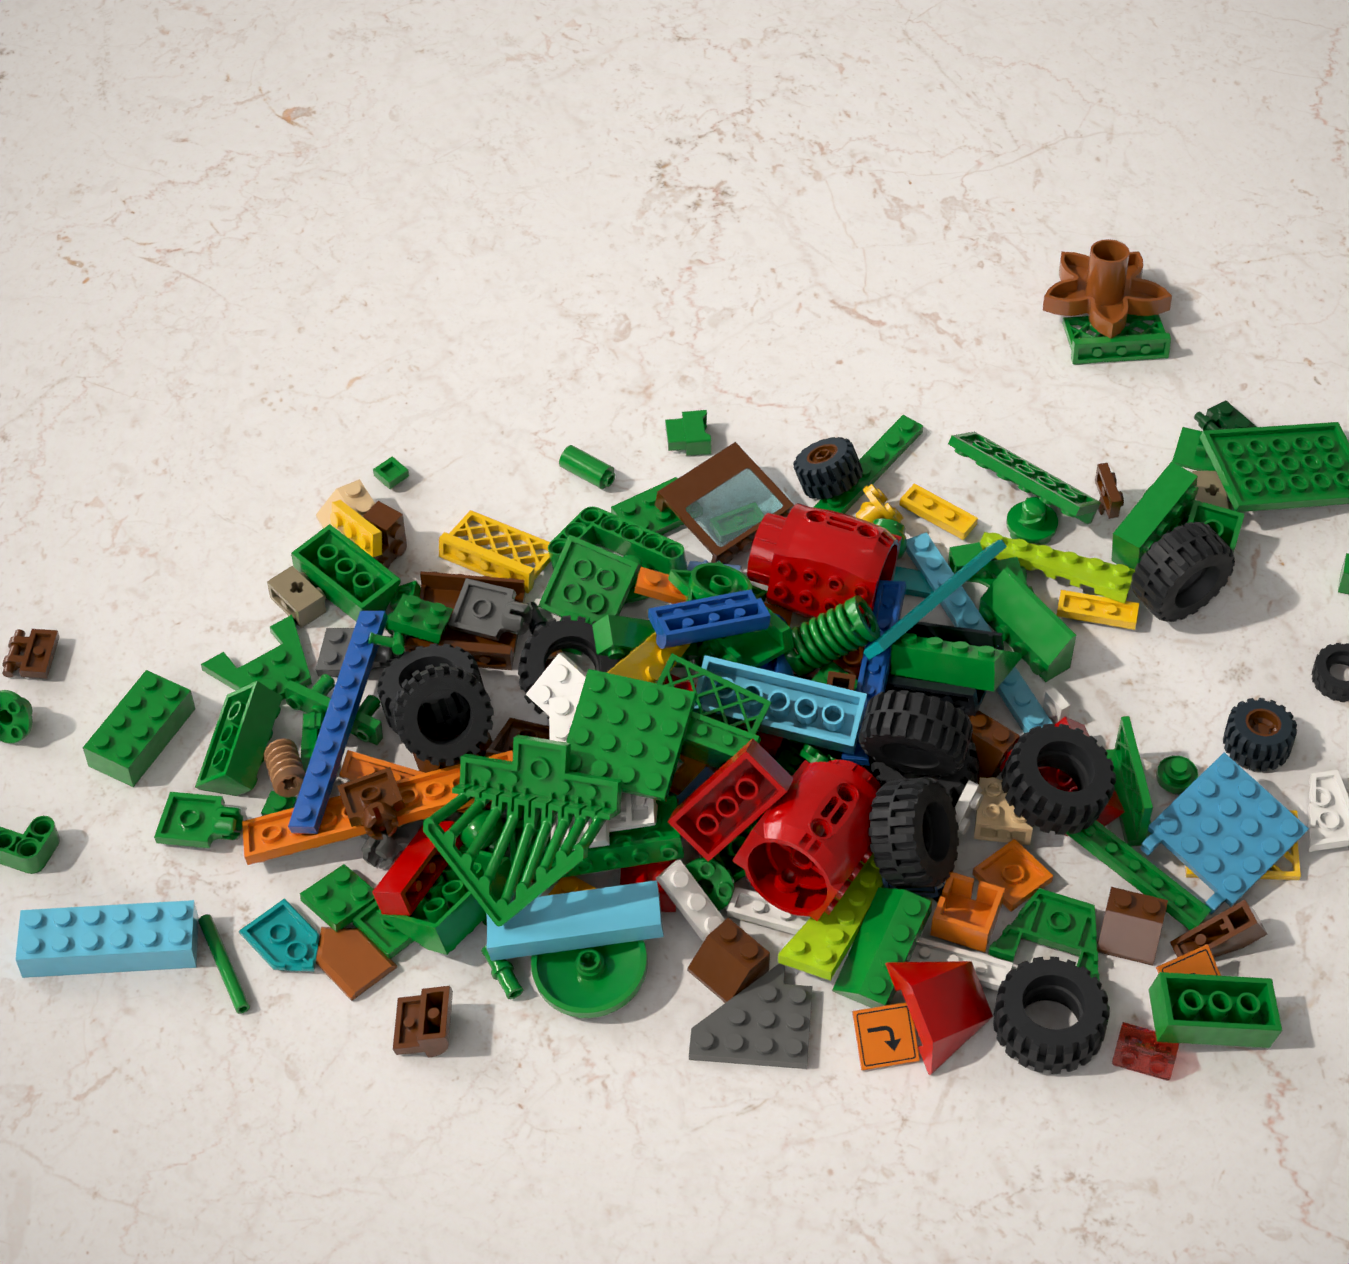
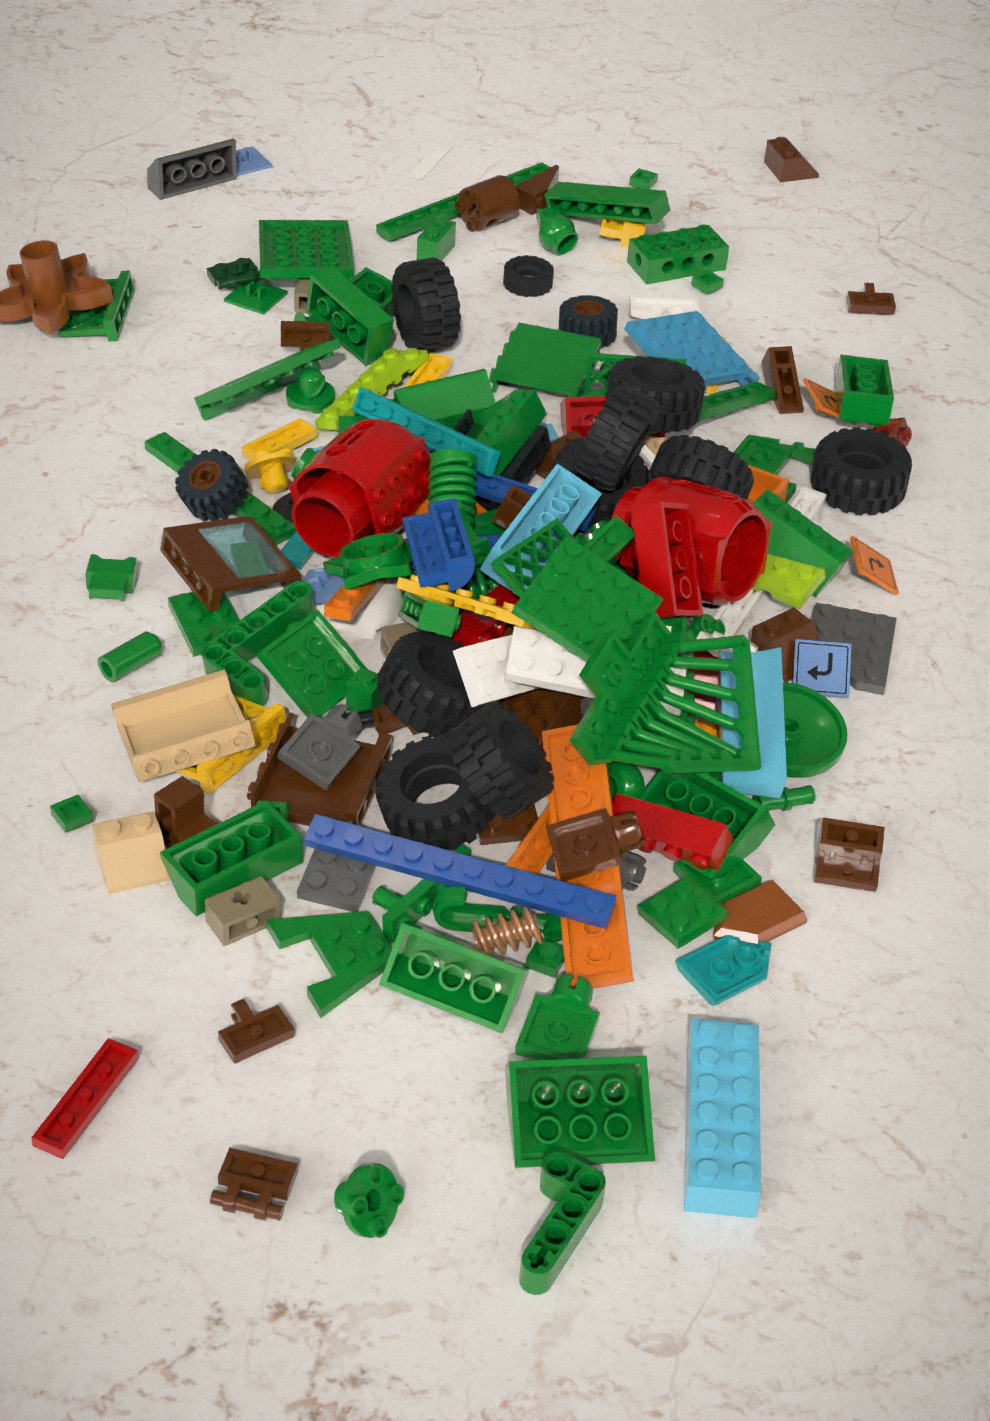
camera: 85 degrees left, 10 degrees down
(103, 543) = (84, 1098): none -> red plate
(109, 842) = (580, 1108): none -> green slope
(139, 728) = (413, 1070): green brick -> none
(175, 628) = (254, 1032): none -> reddish brown plate
(223, 964) = (778, 1015): green piece -> none
(356, 528) = (182, 823): yellow plate -> none
(395, 643) = (360, 812): green piece -> none
(420, 618) = (323, 795): green plate -> none
(492, 515) = (182, 725): none -> tan panel
(697, 992) = (823, 667): none -> medium blue piece
(943, 1003) = (846, 517): red wedge -> none
(1132, 926) = (769, 417): reddish brown slope -> none
(1168, 706) = (545, 360): none -> green panel

